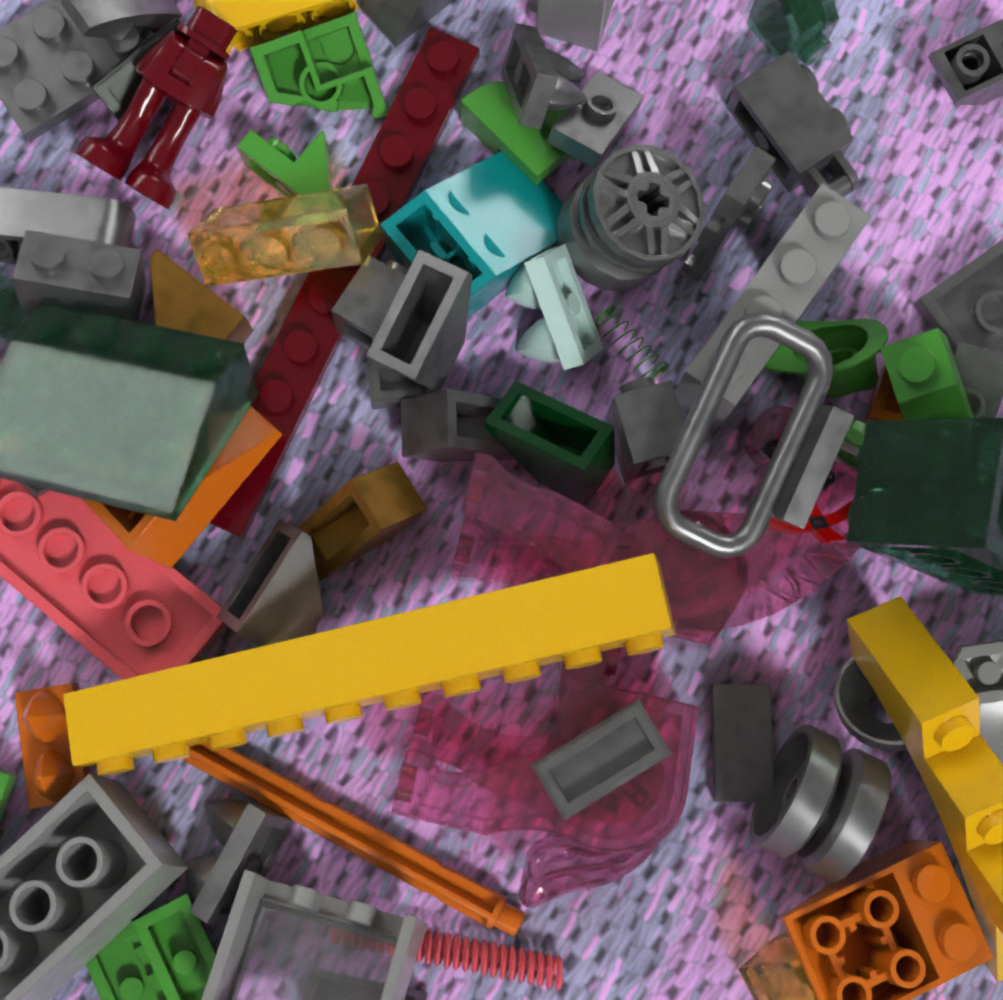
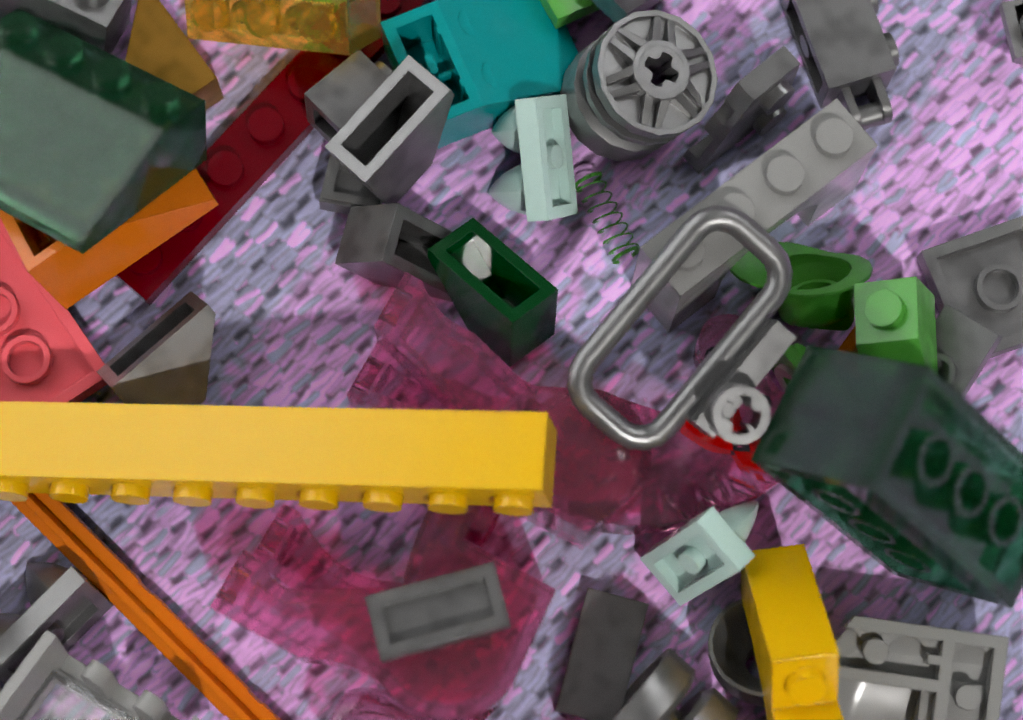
camera: 15 degrees right, 5 degrees down
(362, 517) = (274, 314): pearl gold slope -> none
(645, 426) = (588, 290): flat silver brick -> none
(811, 627) = (703, 551): none -> light aqua tile
(841, 508) = (752, 399): none -> flat silver bush

